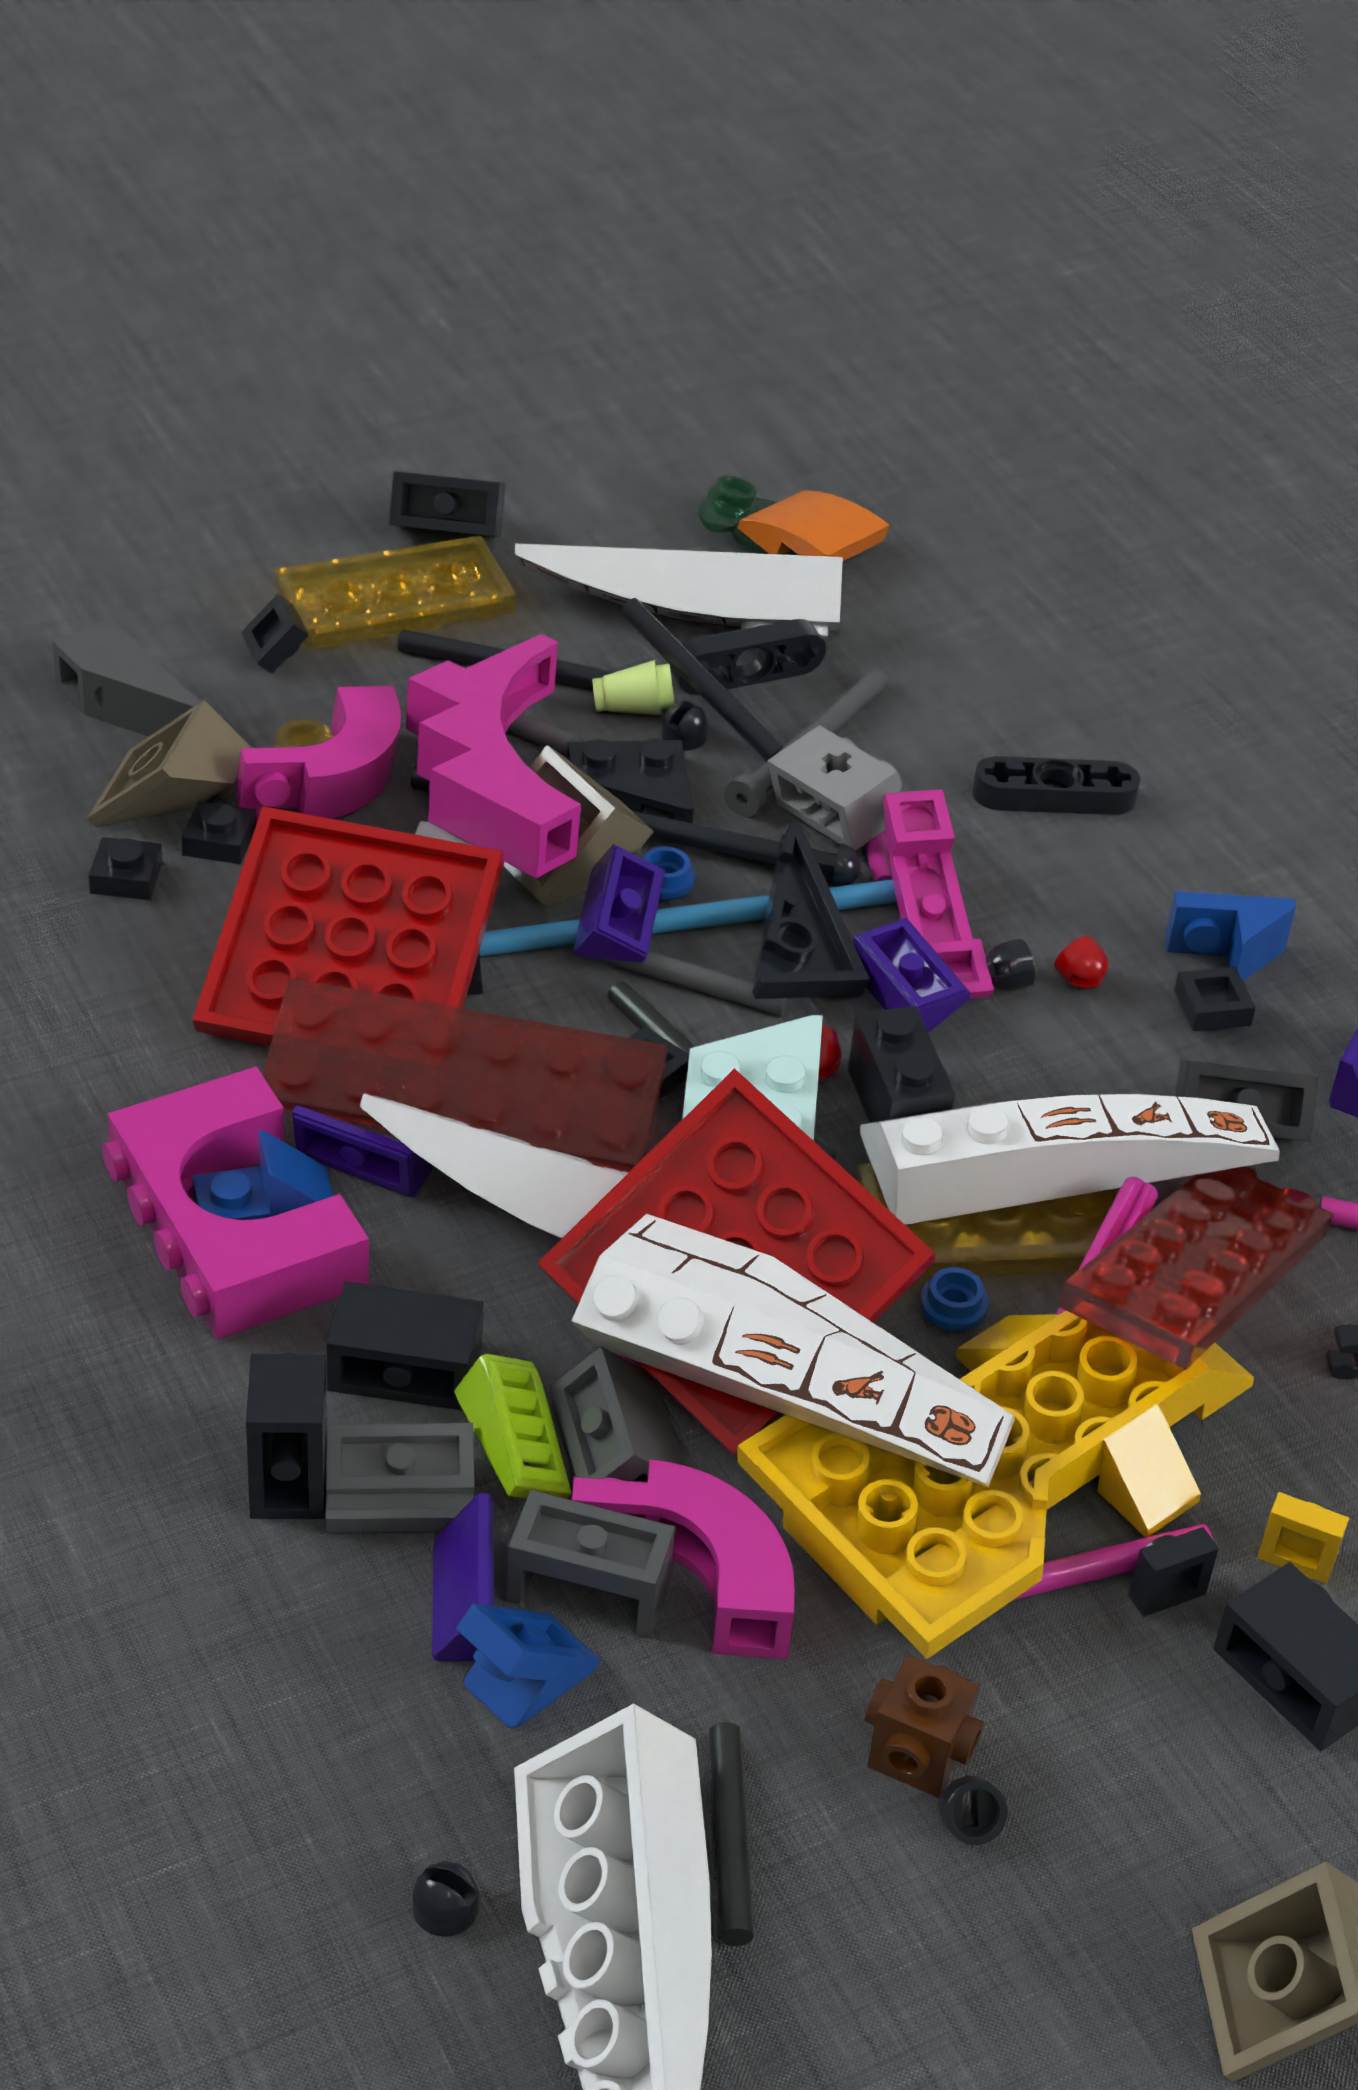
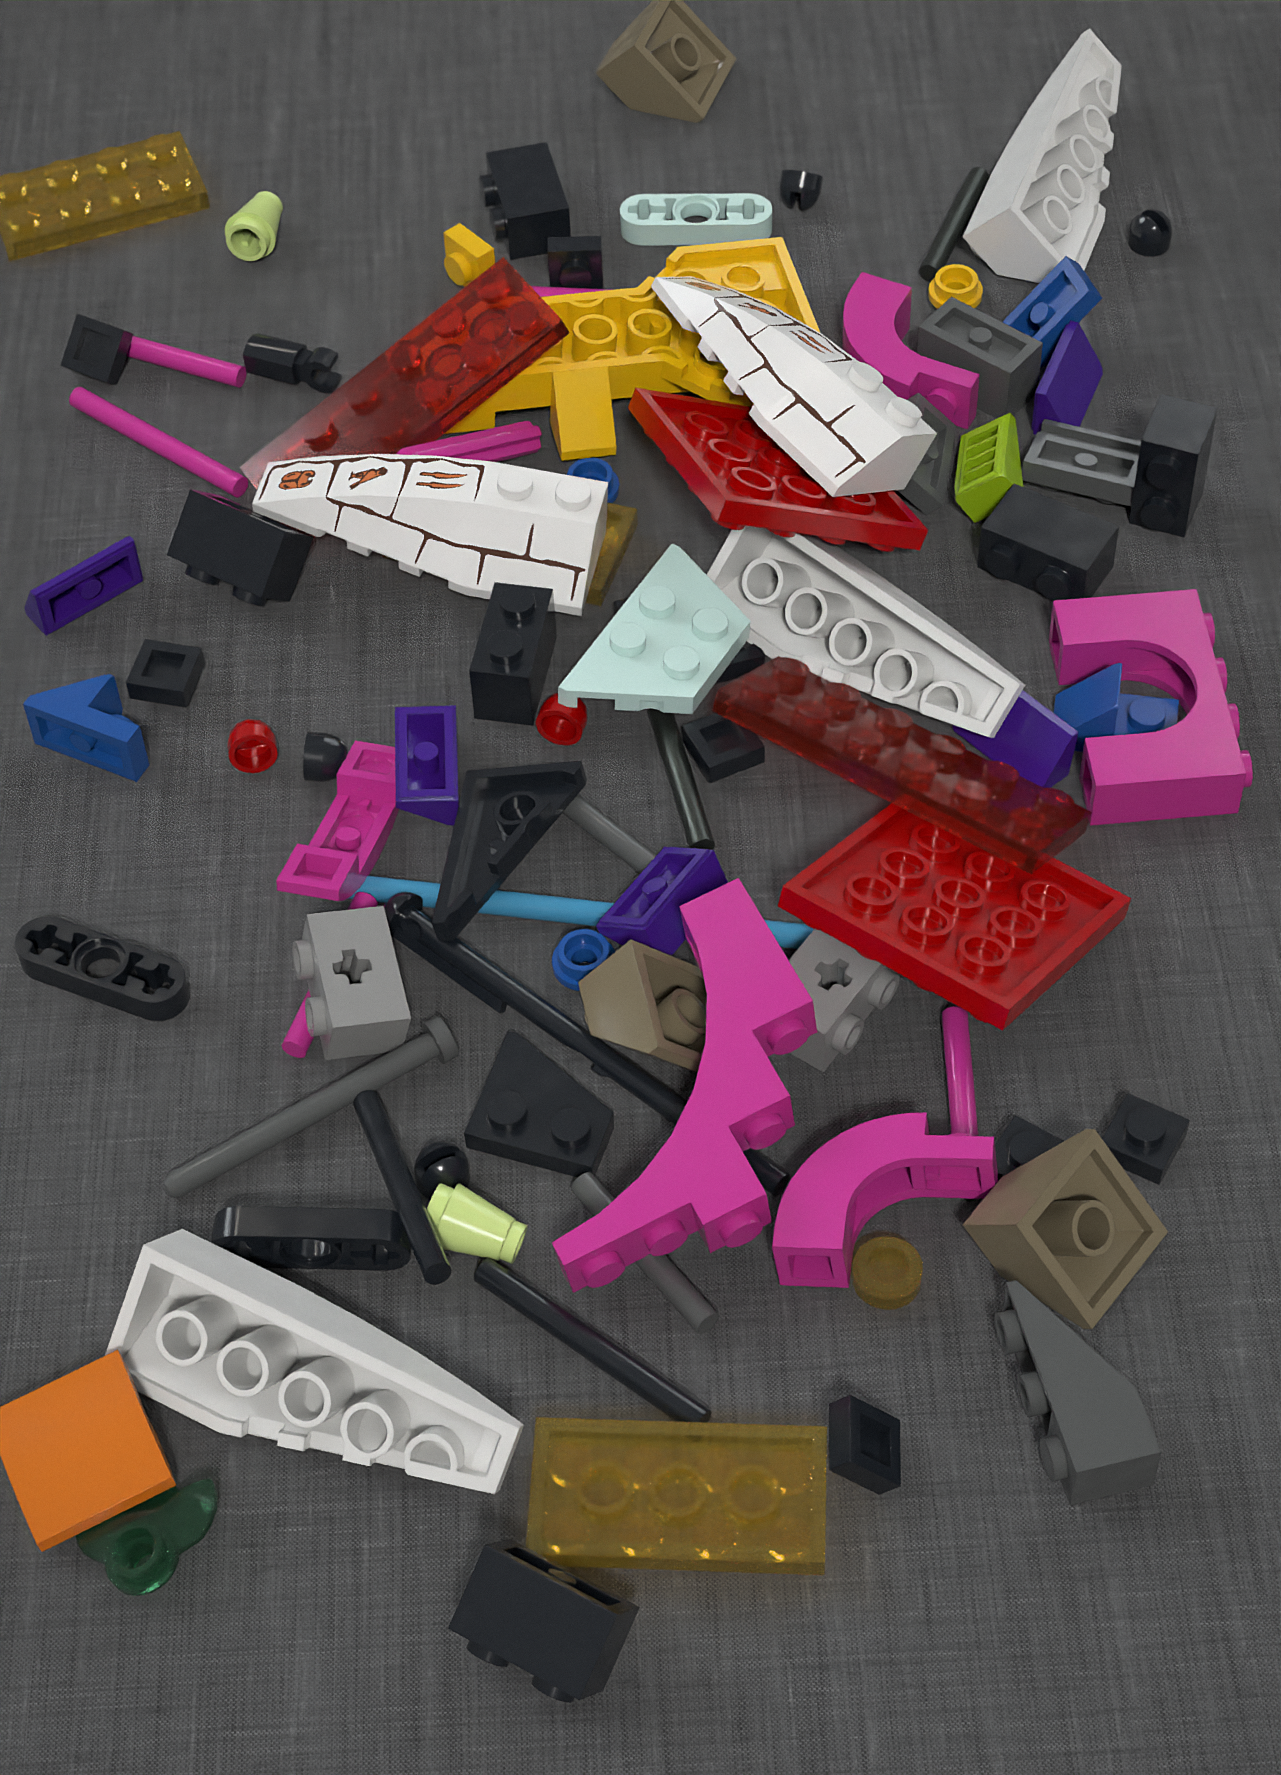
camera: 150 degrees left, 10 degrees up
(679, 1683) = (956, 282): none -> yellow plate
(923, 1725) = (808, 218): reddish brown brick -> none
(1061, 1748) = (645, 217): none -> light aqua beam

